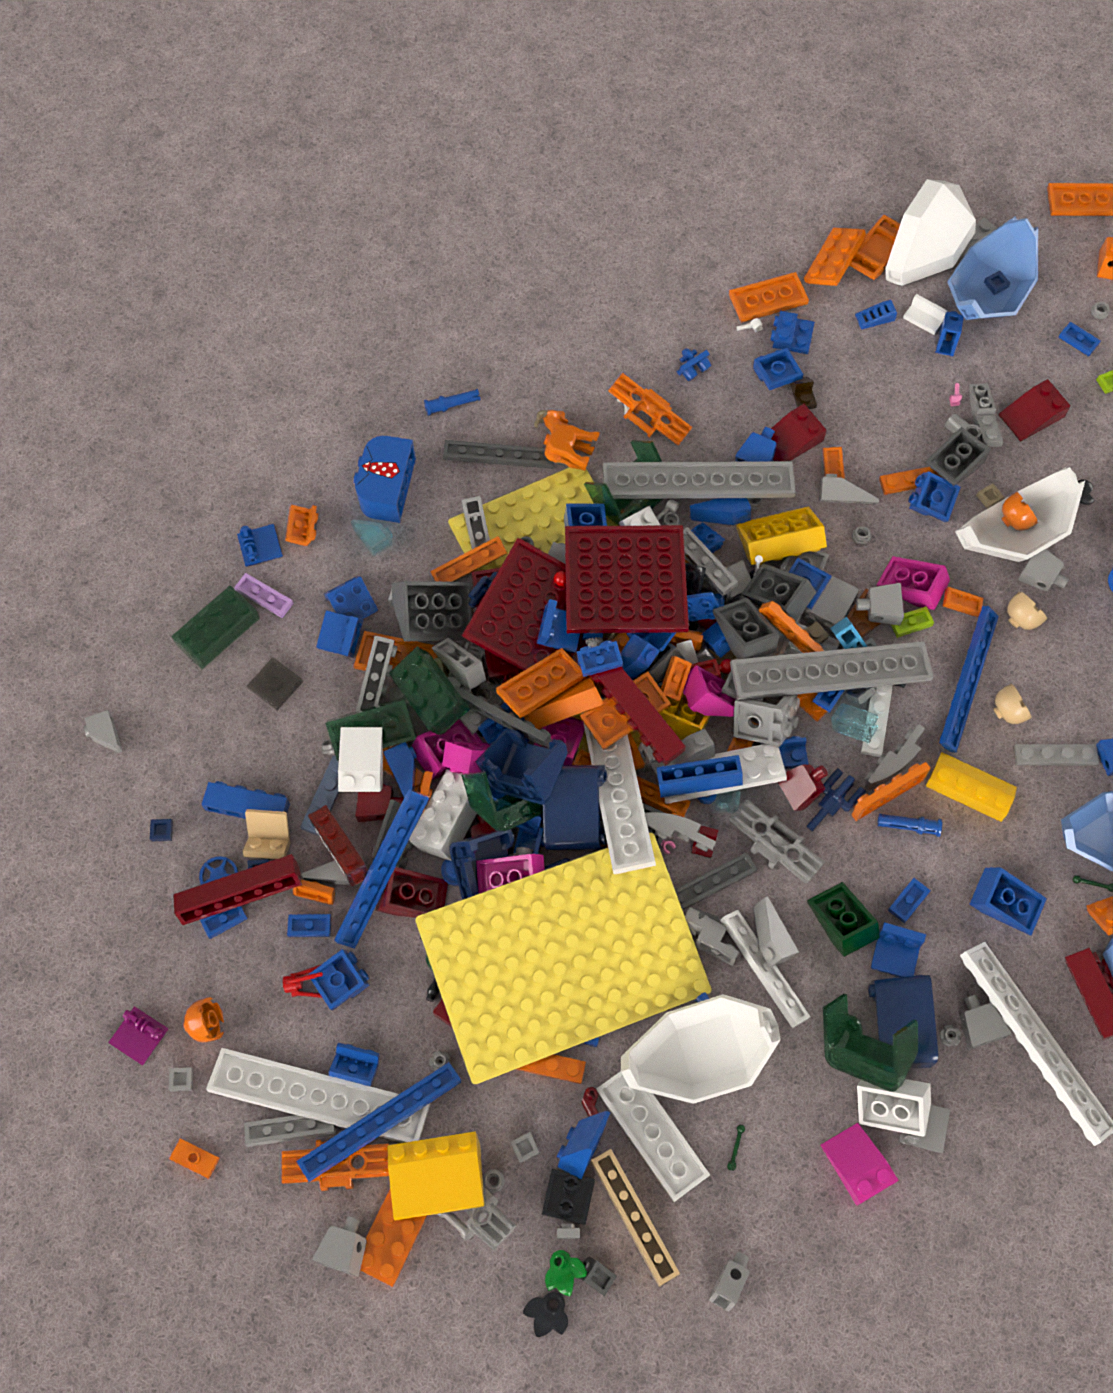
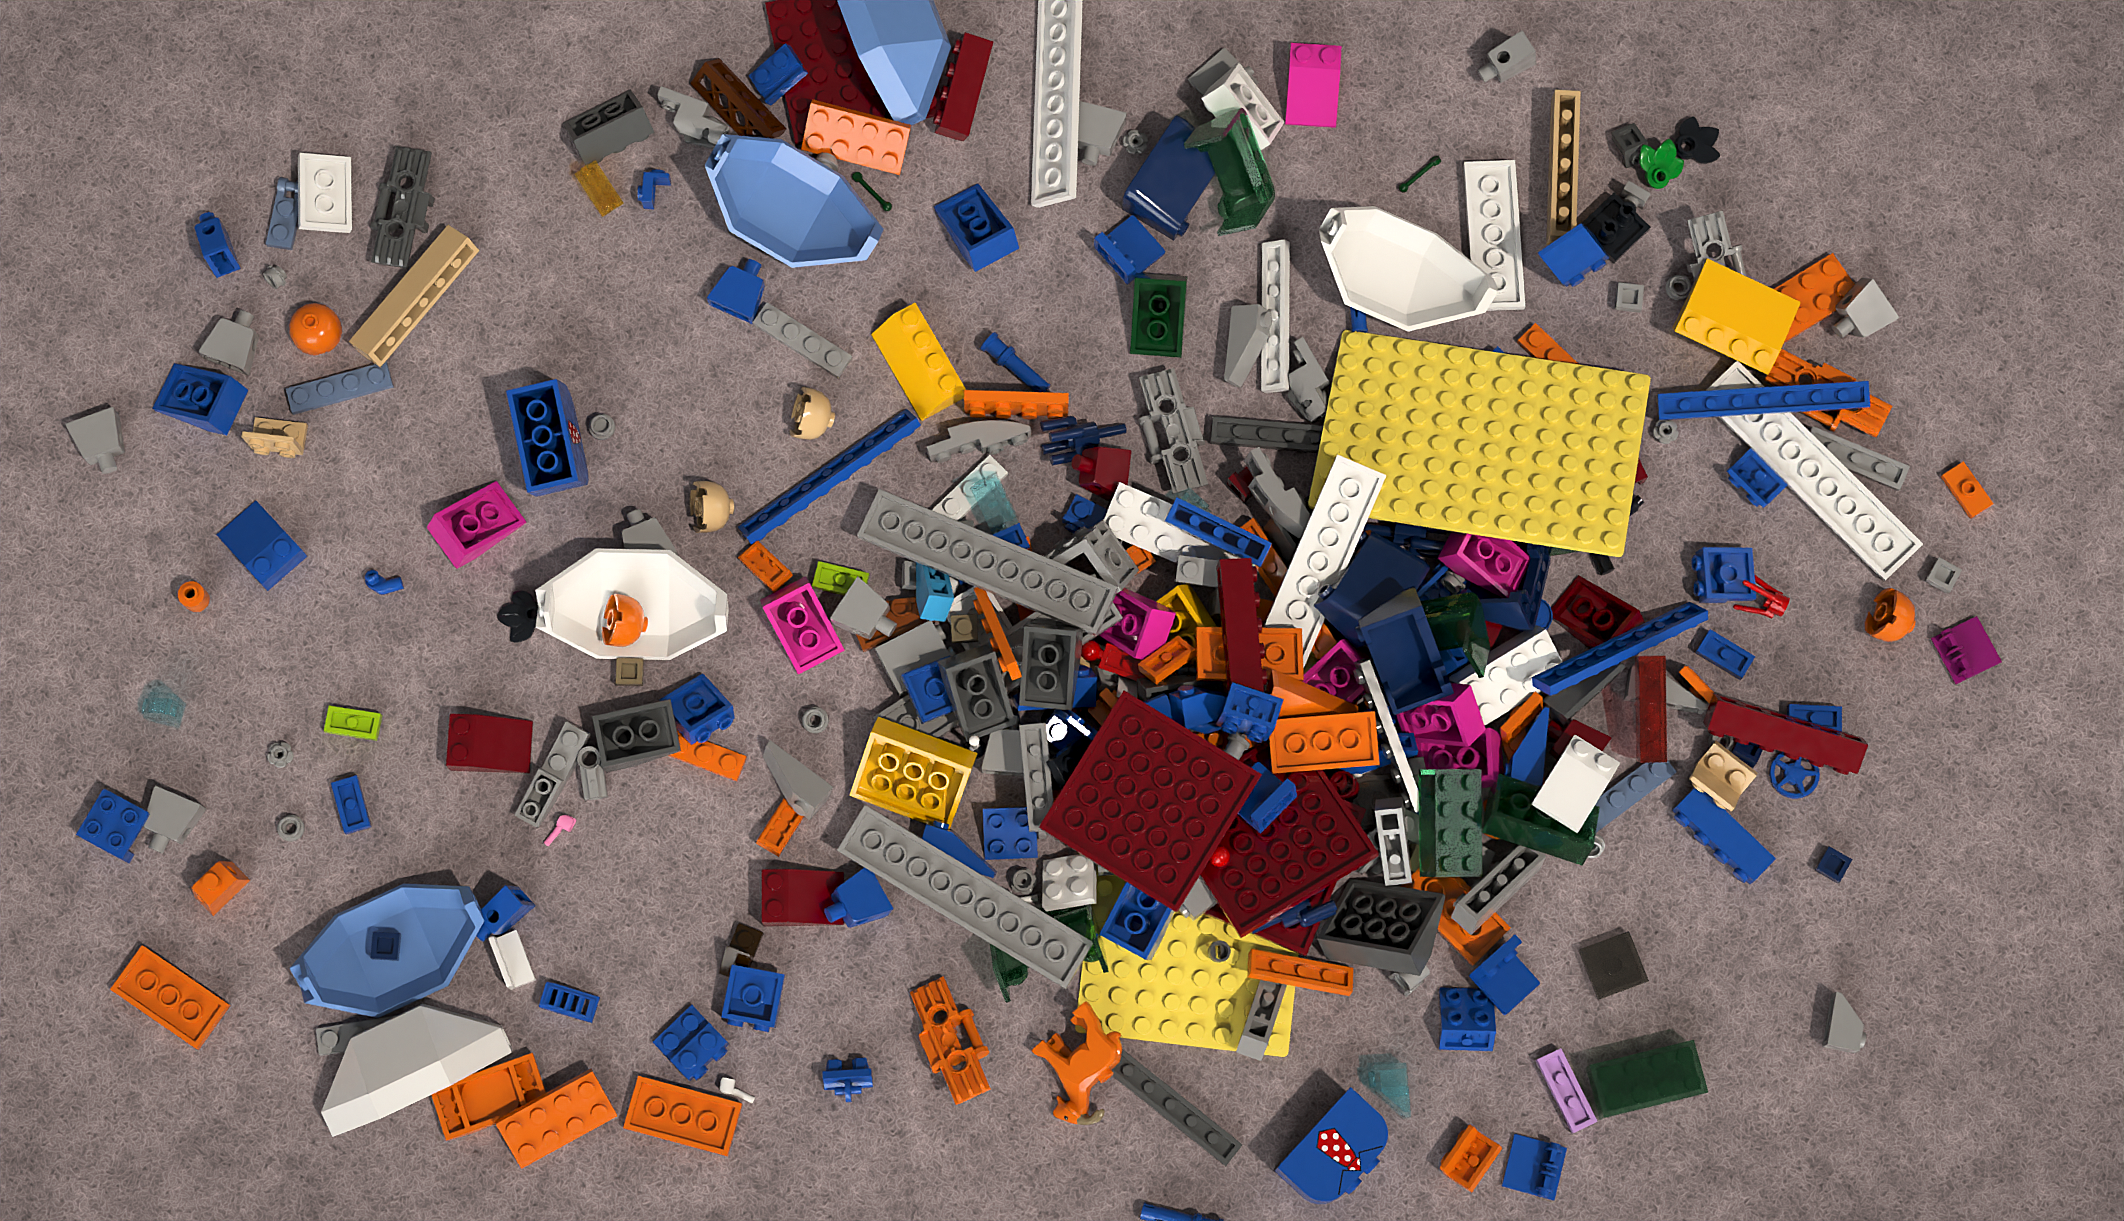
camera: 150 degrees left, 10 degrees up
(589, 1101) = (1539, 299): dark red arm -> none
(909, 900) = (1077, 290): blue plate -> none

